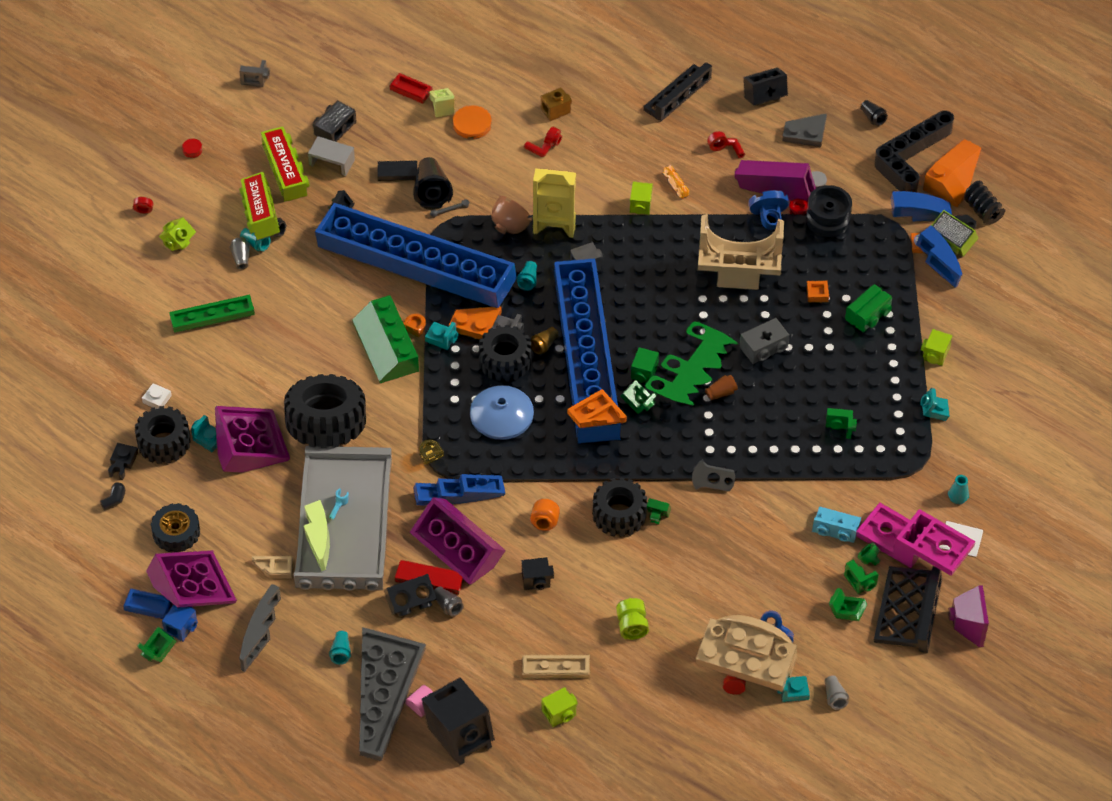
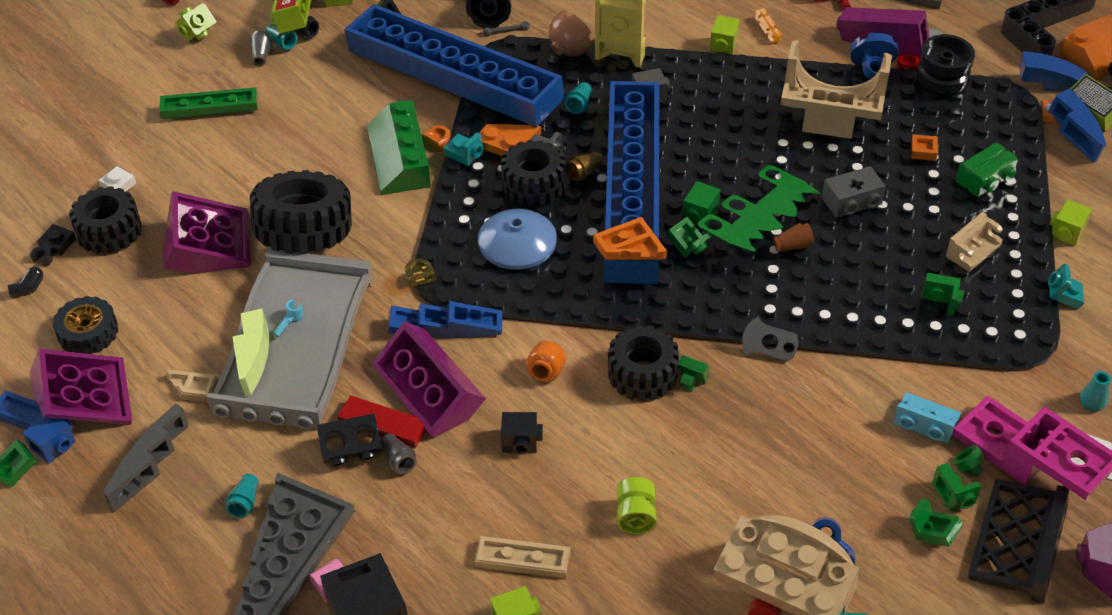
camera: 10 degrees right, 5 degrees down
(204, 433) = (154, 223): teal bracket -> none
(863, 375) = (974, 242): none -> tan hinge

